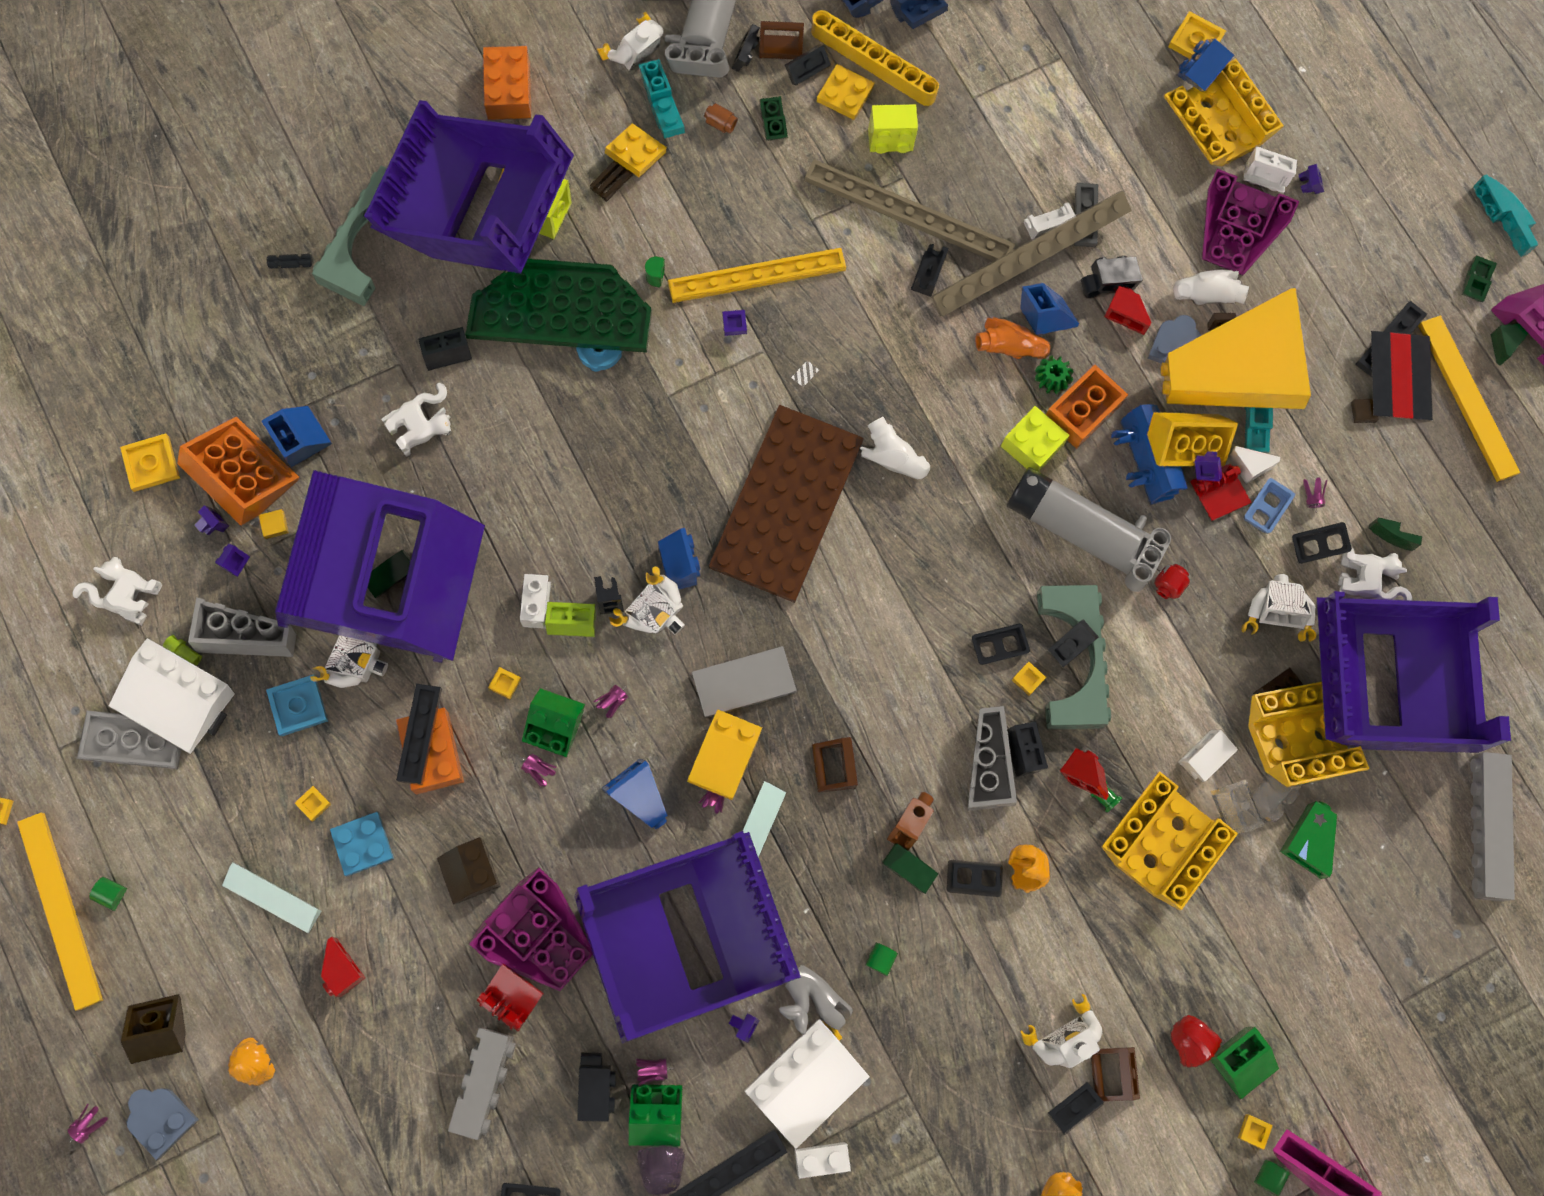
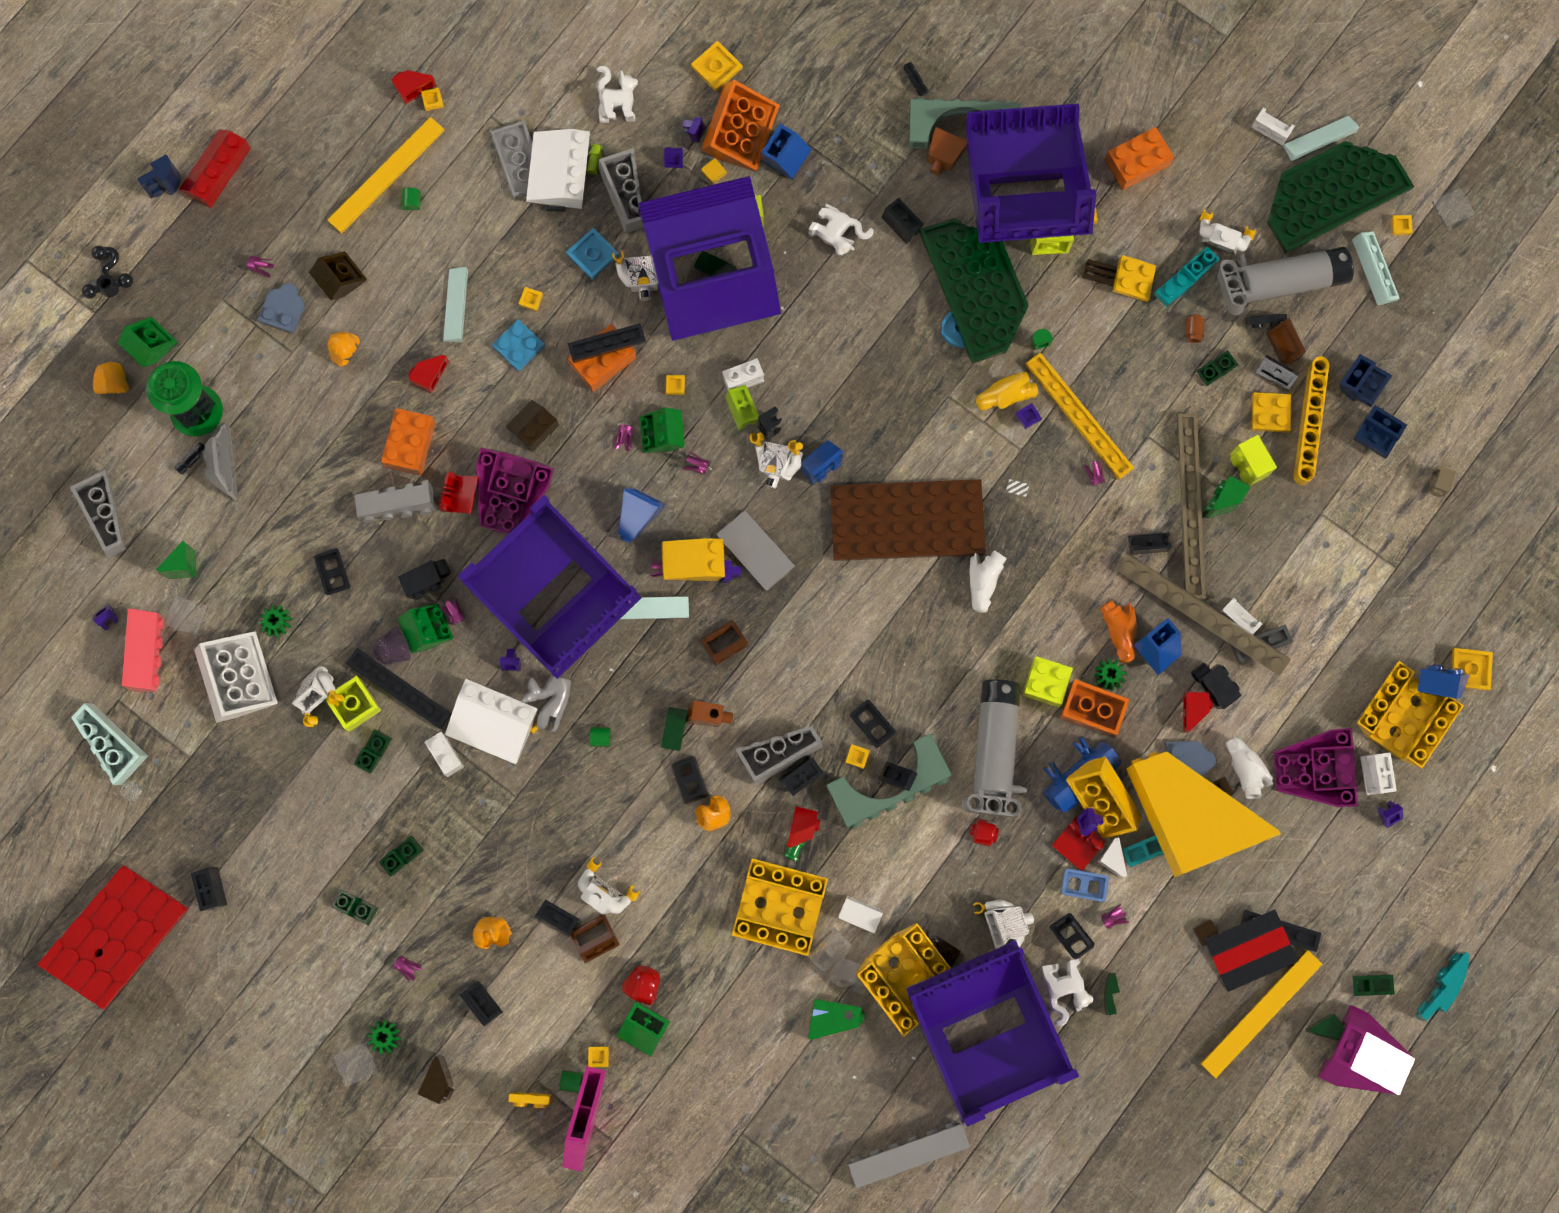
camera: 70 degrees right, 5 degrees up
(389, 268) = (945, 151): none -> dark orange torso
(413, 1032) = (408, 441): none -> orange brick
(697, 331) = (1007, 392): none -> yellow animal
(757, 719) = (730, 571): none -> dark purple tile
(835, 286) = (1098, 477): none -> flat silver piece
(918, 170) = (1228, 497): none -> green slope

